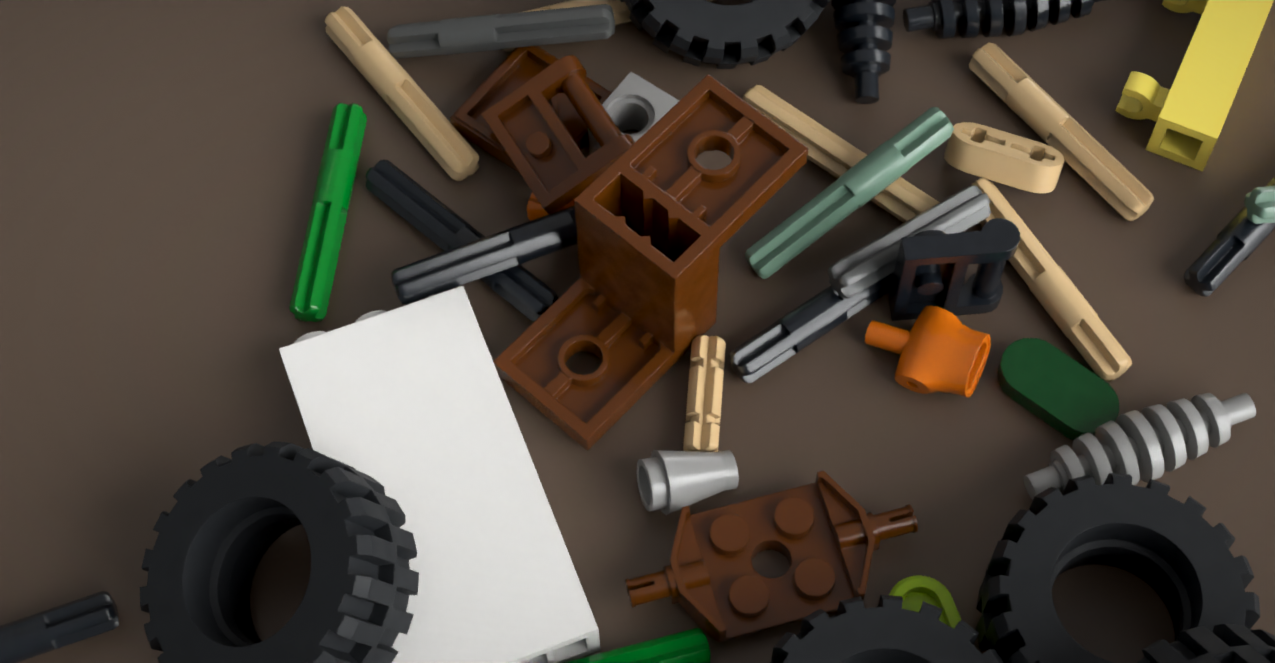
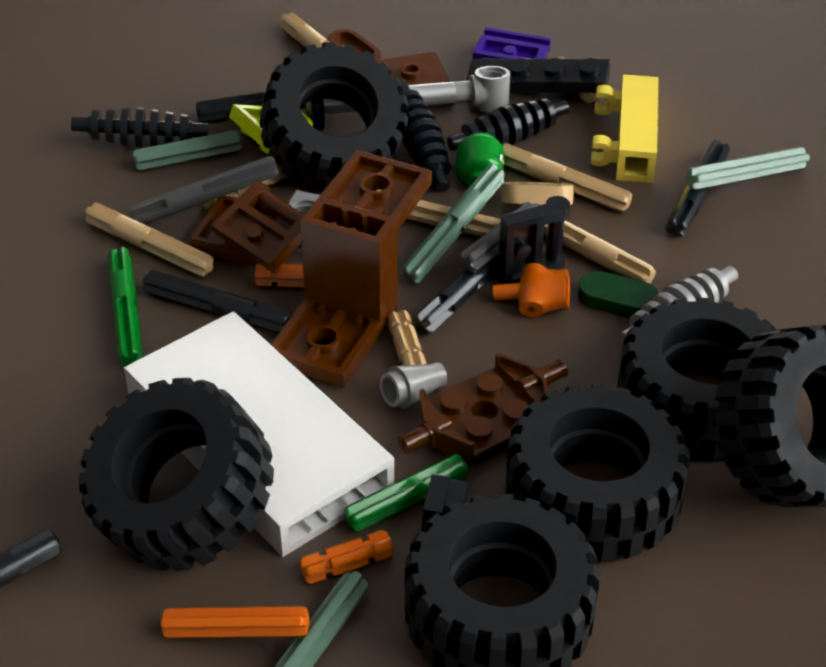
camera: 20 degrees left, 20 degrees down
(485, 256) = (246, 293): black axle -> none
(937, 69) = (475, 154): none -> green head

